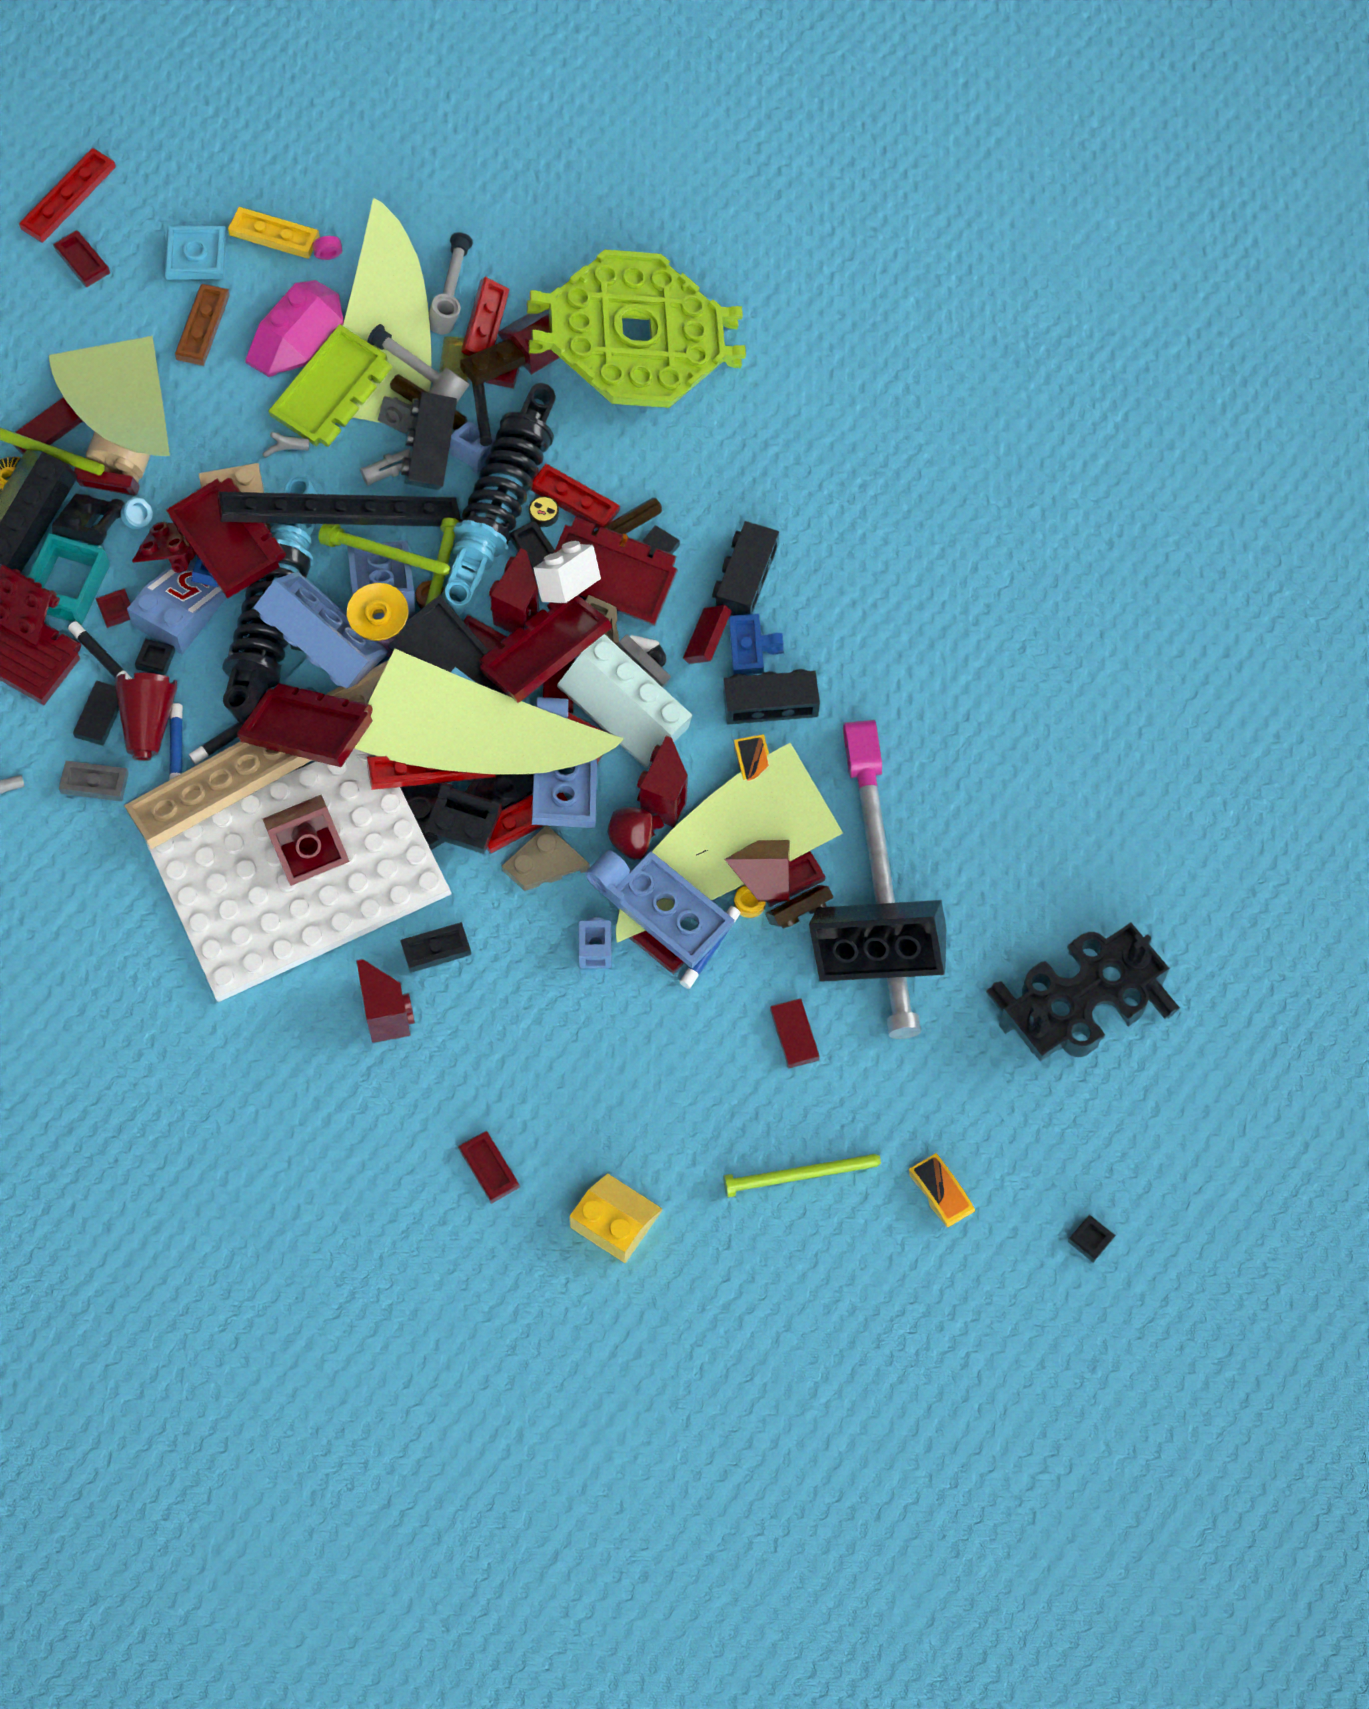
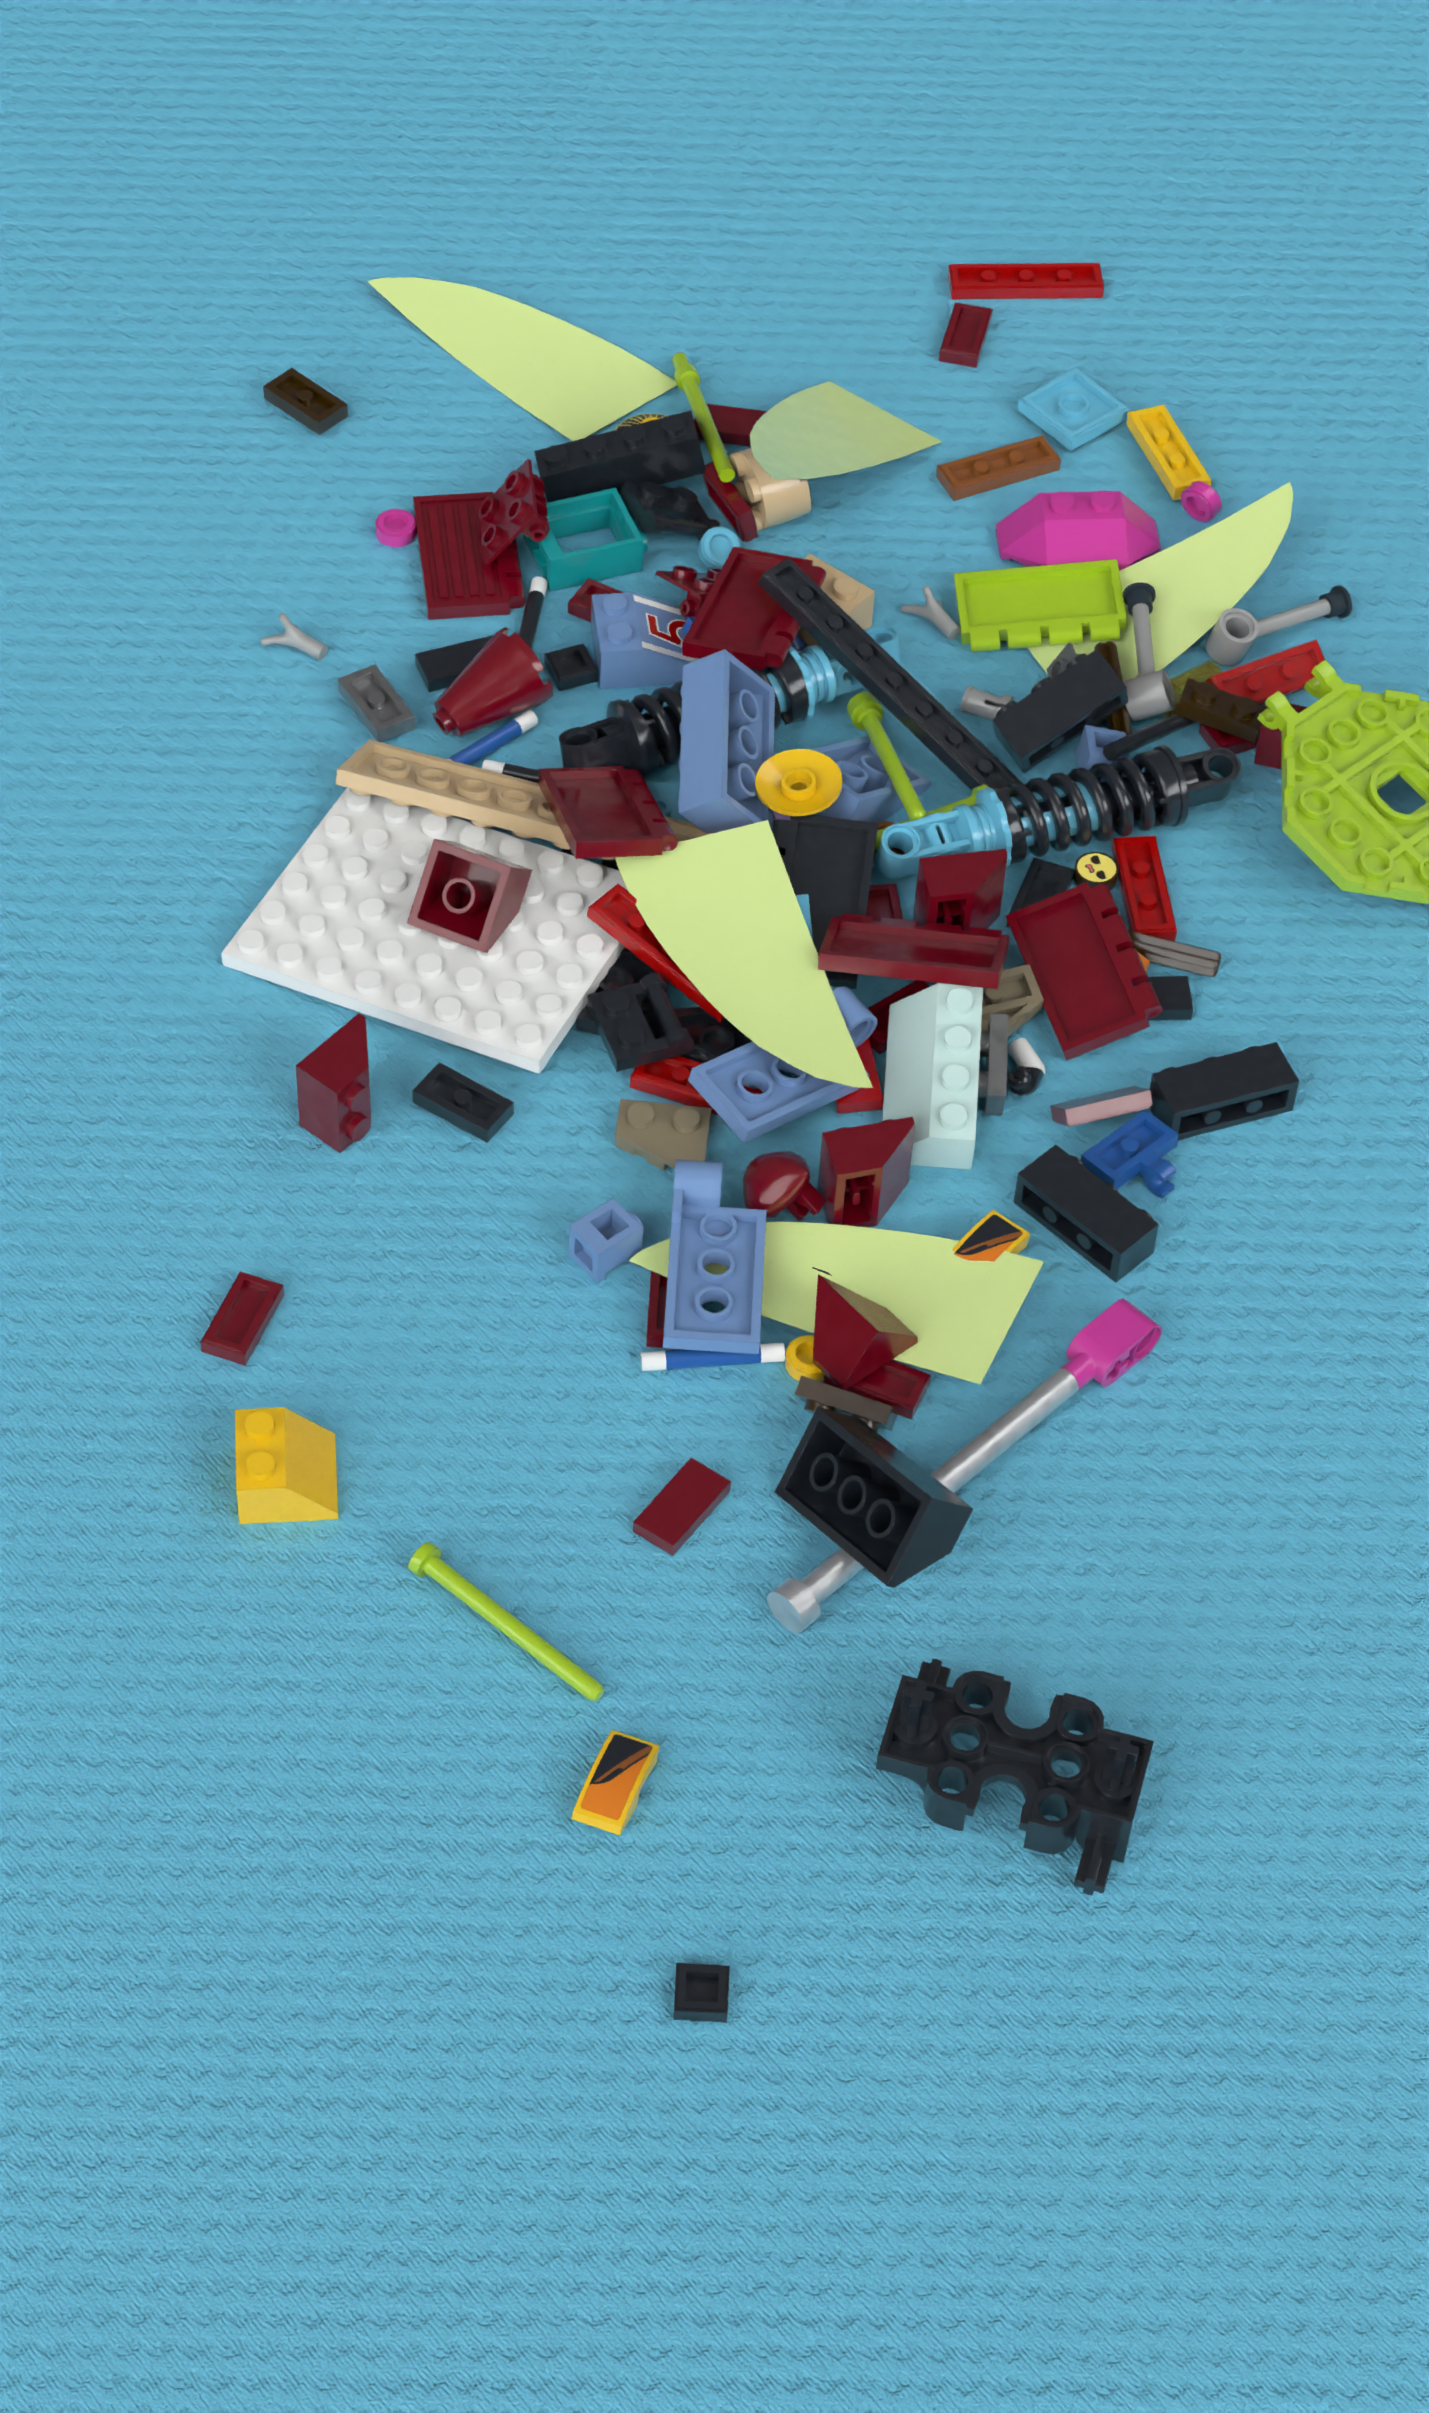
camera: 50 degrees right, 15 degrees down
(567, 572) = (1022, 909): white brick -> none

